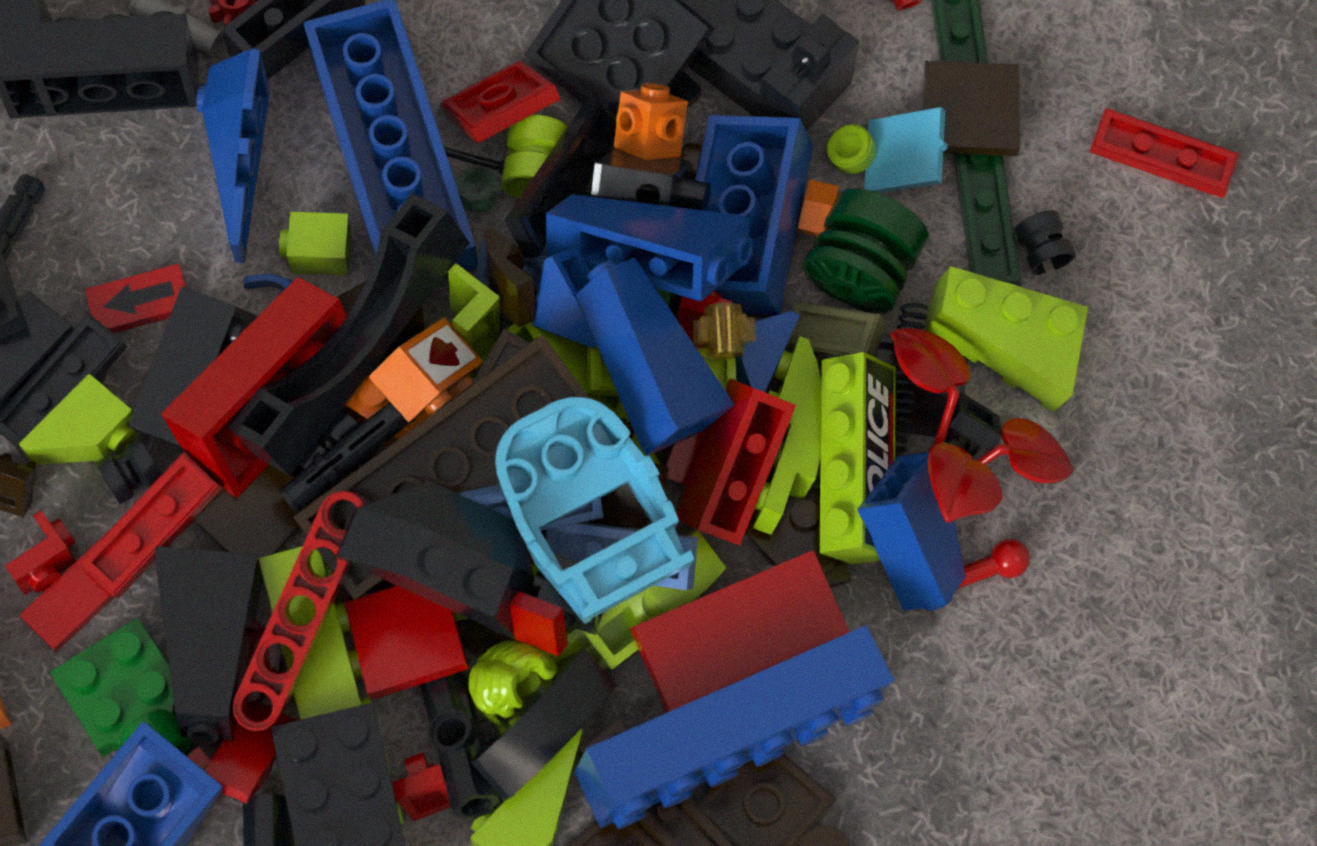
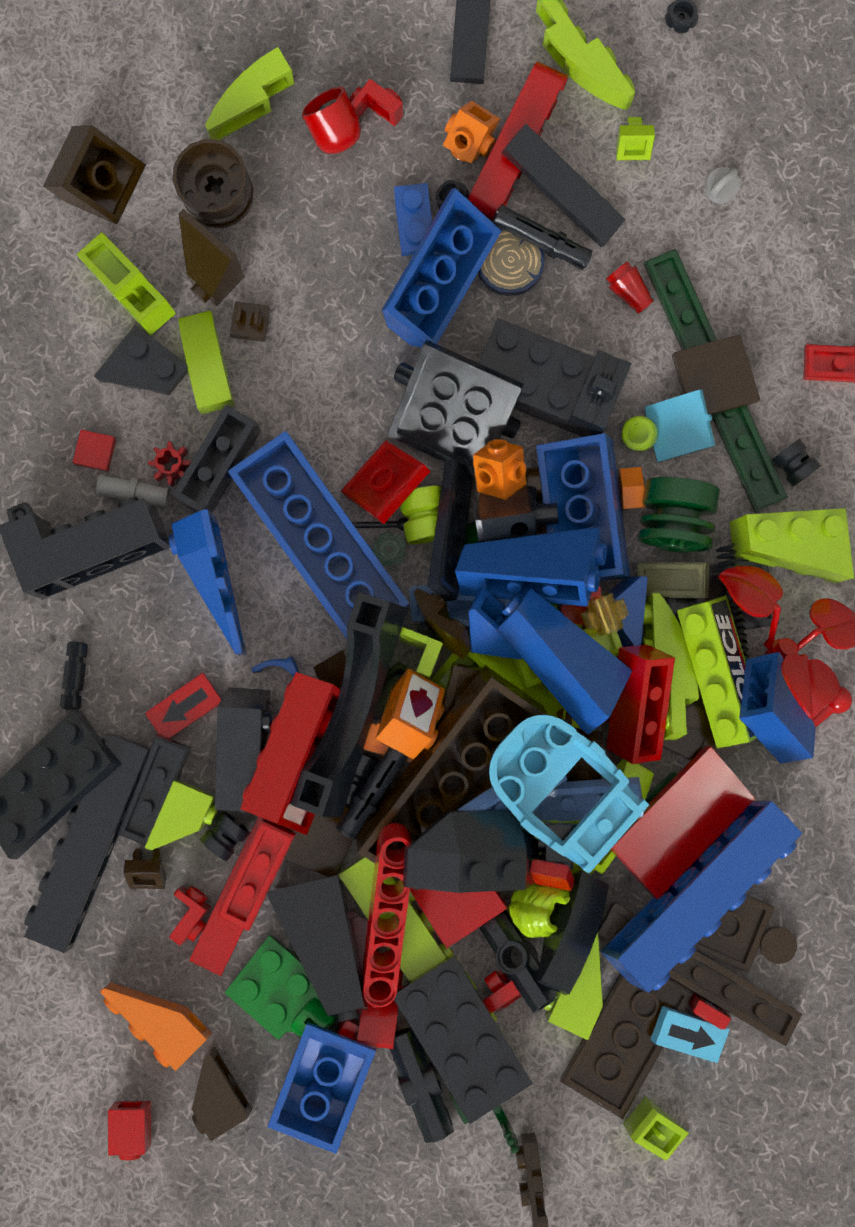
camera: 15 degrees left, 15 degrees up
(317, 243) = (293, 628): lime brick -> none
(975, 423) = (793, 618): black tile -> none

